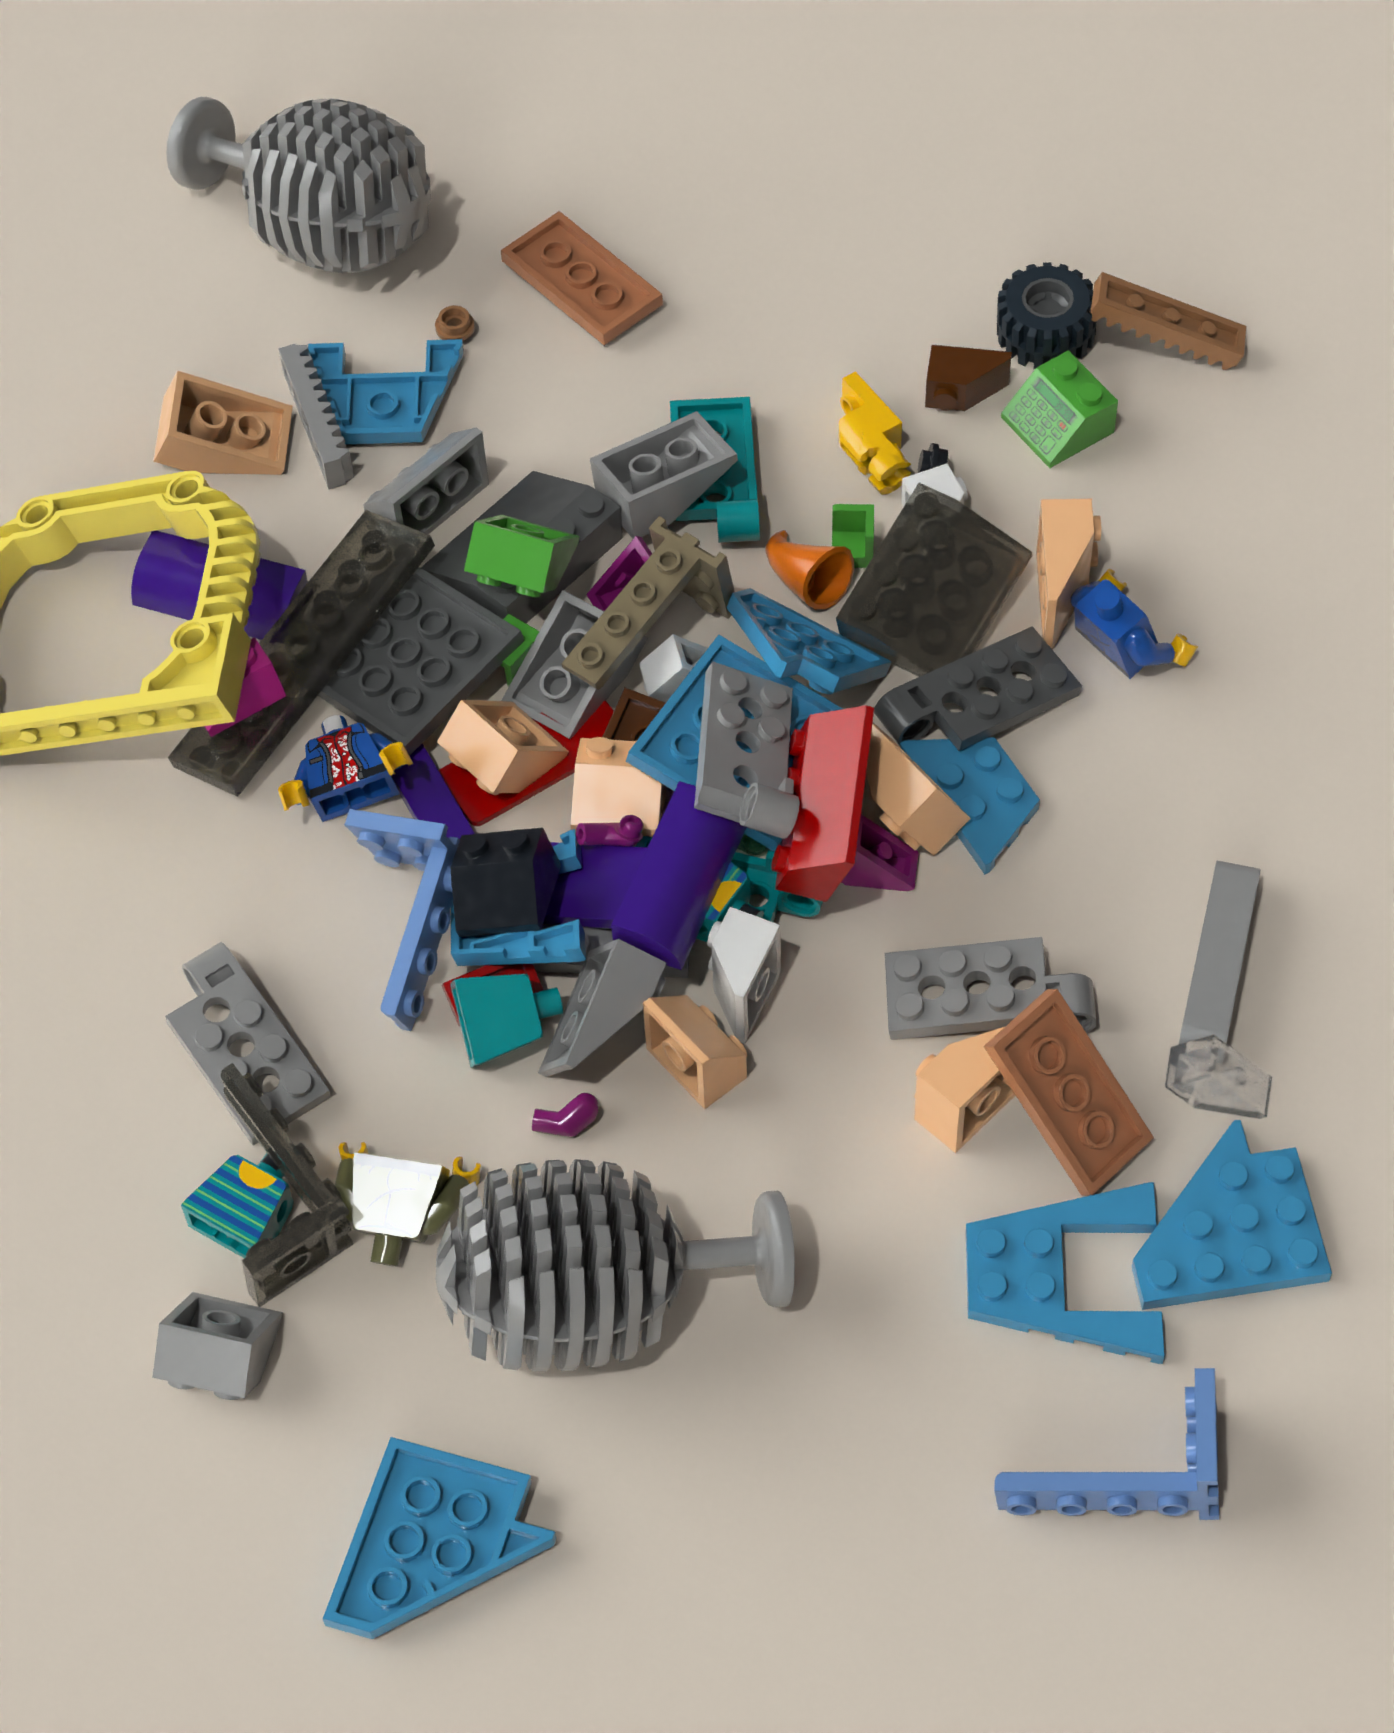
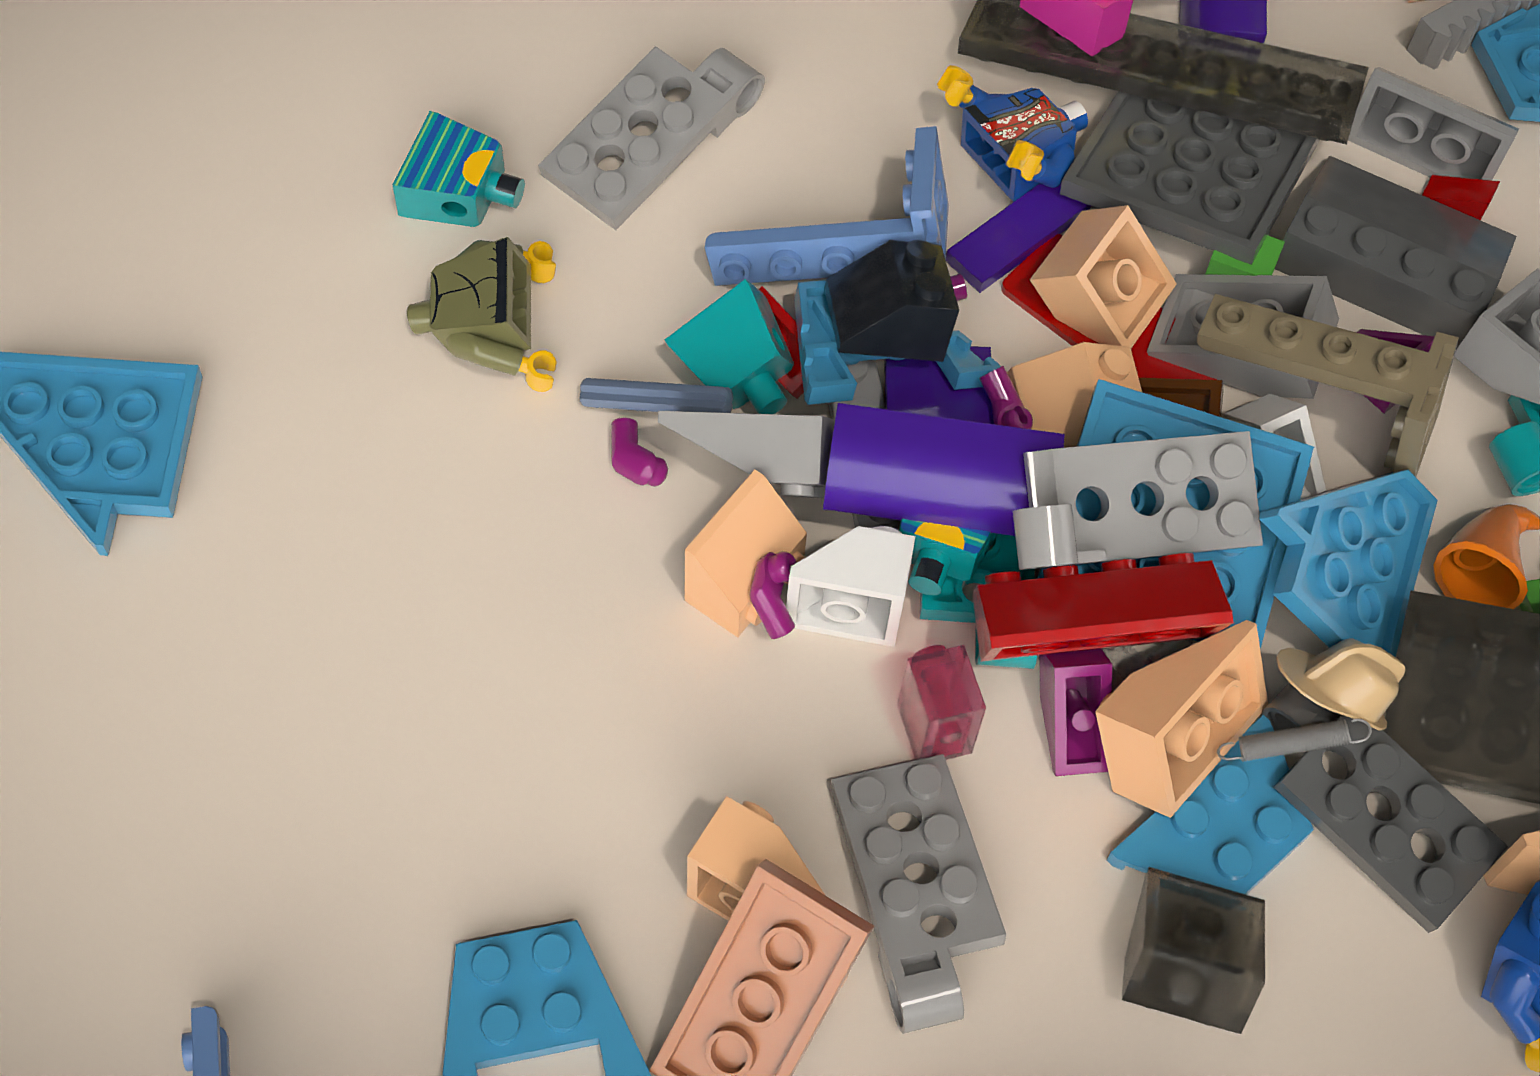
camera: 70 degrees right, 5 degrees up
(215, 1345) = (288, 187): light grey slope -> none
(309, 1237) = (423, 243): clear smoke bracket -> none
(486, 492) = (1462, 194): none -> red piece
(519, 554) = (1355, 214): bright green slope -> none
(525, 1083) = (654, 396): none -> sand blue axle
(581, 1266) = (402, 484): light grey plant -> none
(737, 1031) = (766, 593): none -> magenta arm
(854, 936) = (941, 702): none -> clear pink brick
(898, 675) = (1346, 678): none -> tan piece
(936, 721) = (1295, 740): none -> light grey piece
(1073, 828) = (1196, 951): none -> clear smoke slope

